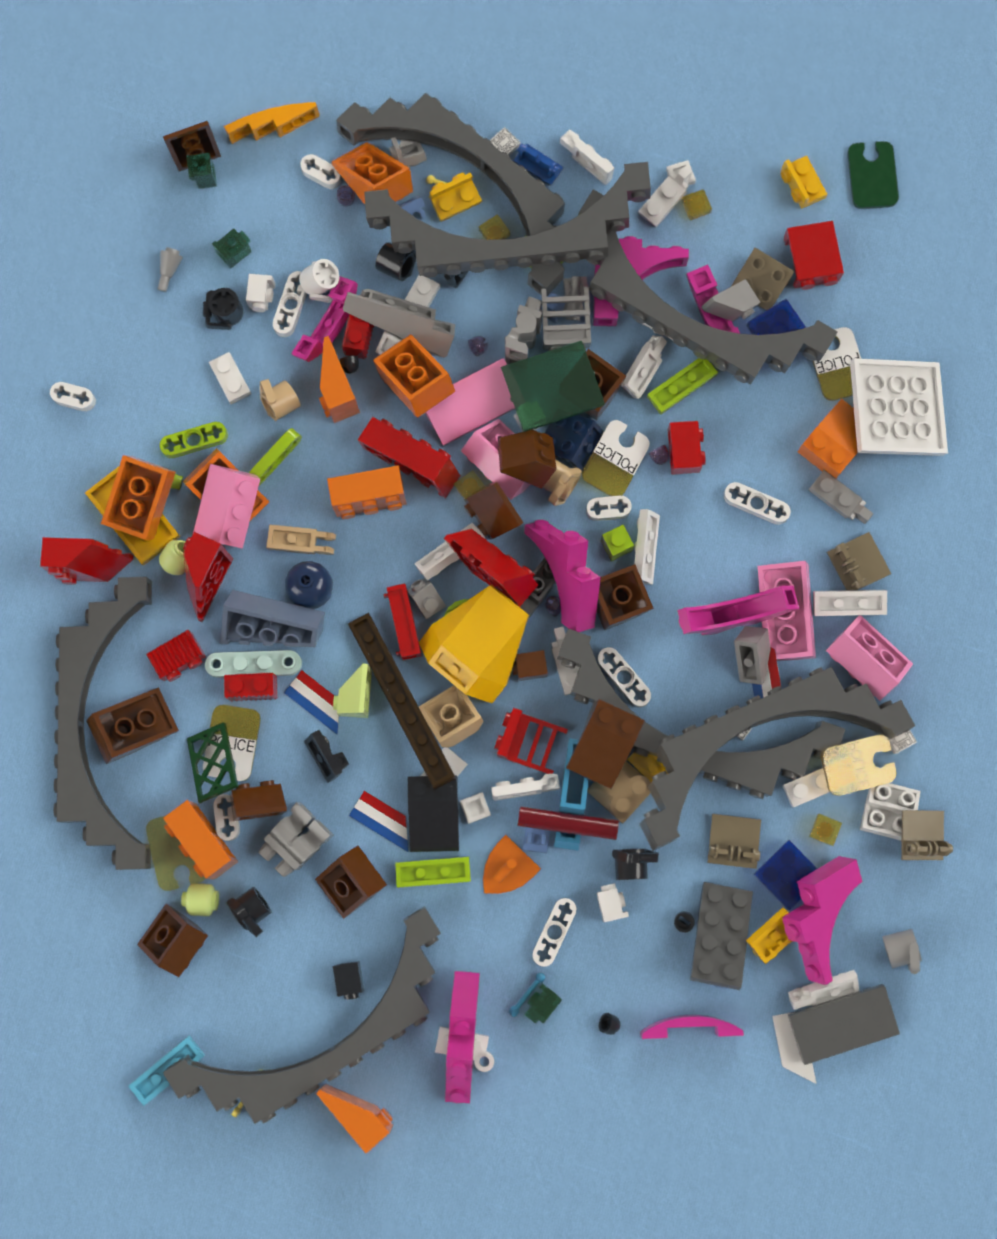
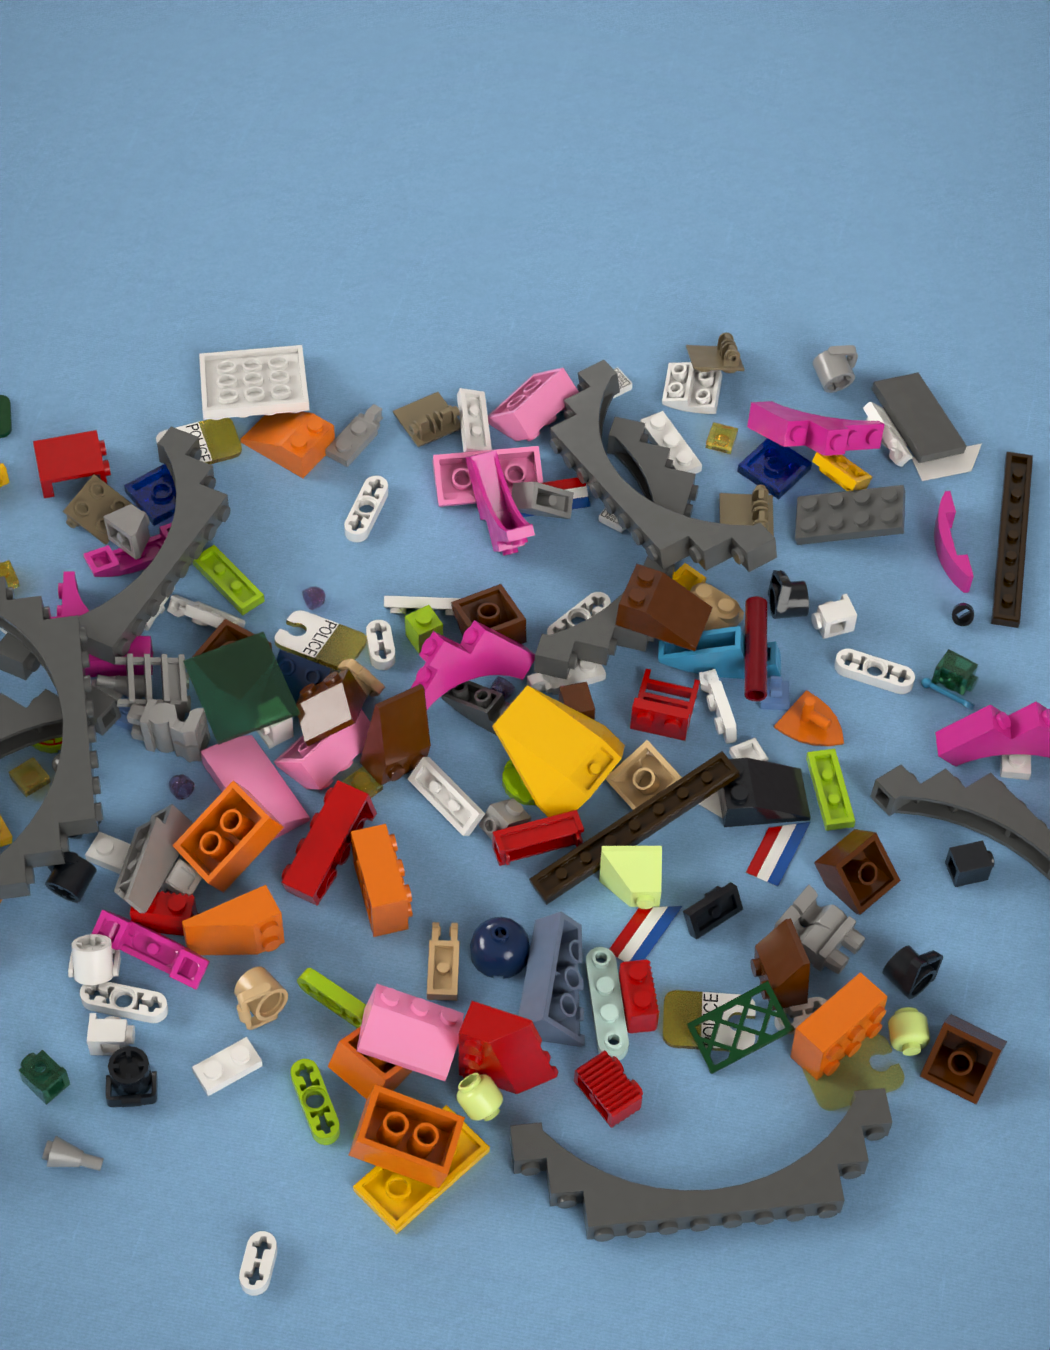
camera: 100 degrees left, 25 degrees down
(81, 560) = (500, 1210): red wedge -> none
(131, 725) = (707, 1134): reddish brown slope -> none
(492, 565) = (468, 733): red wedge -> none
(681, 925) = (843, 546): black hinge -> none
(685, 447) = (306, 569): red brick -> none
(699, 1090) = (1012, 540): none -> dark brown tile
(851, 765) = (654, 411): clear yellow piece -> none

